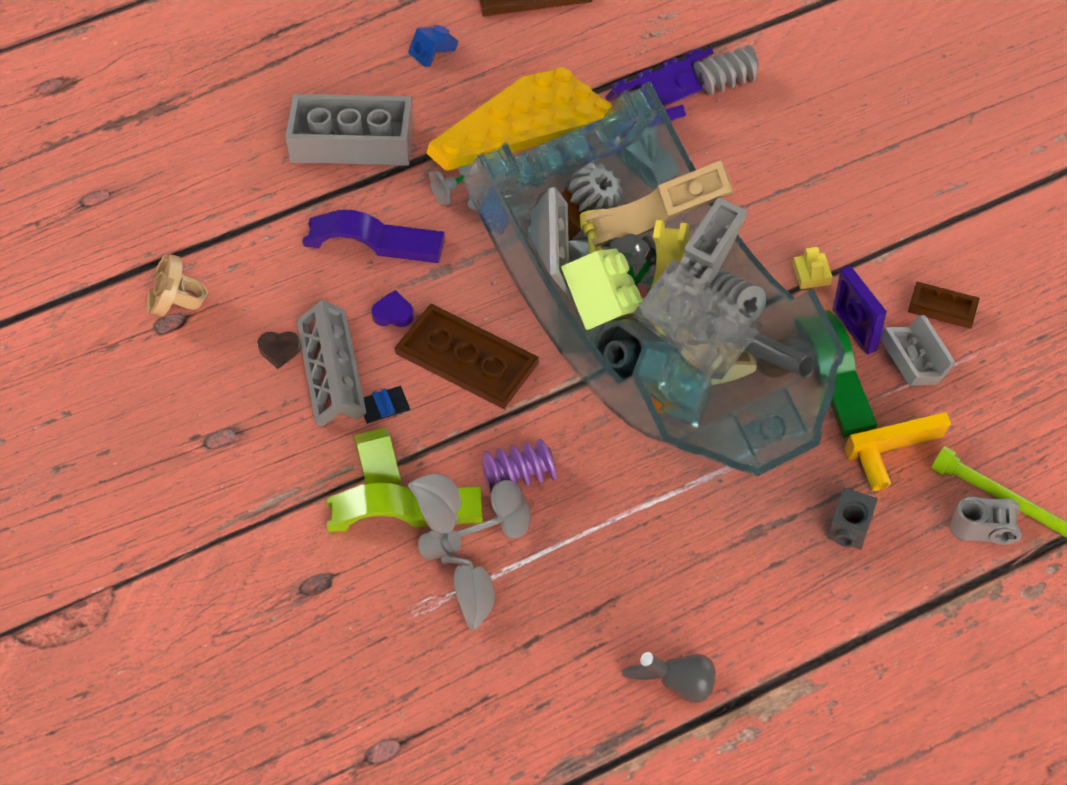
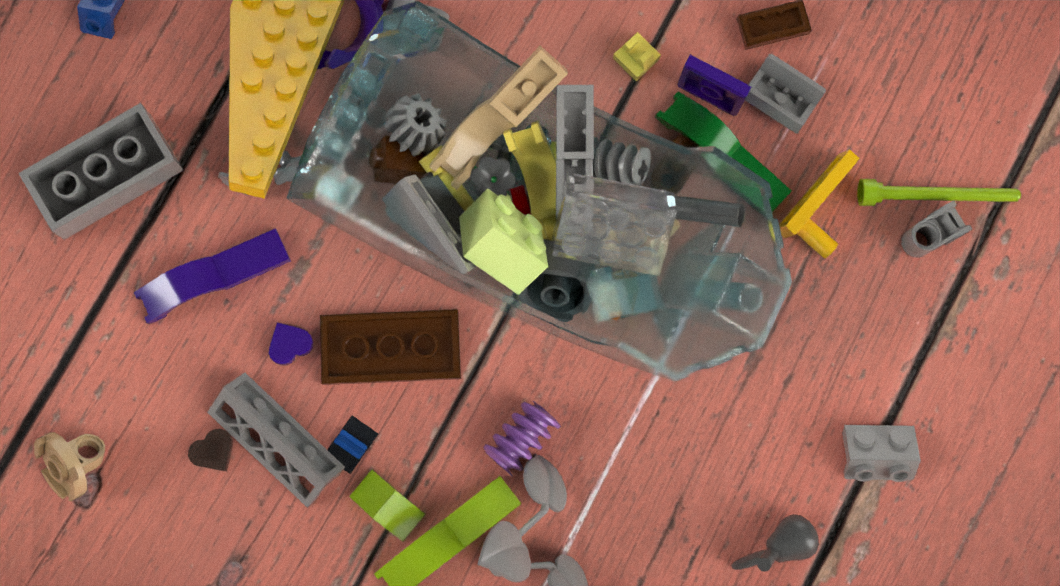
camera: 40 degrees left, 25 degrees up
(818, 661) = (880, 452): none -> light grey bracket
(858, 508) = (836, 289): dark grey brick -> none

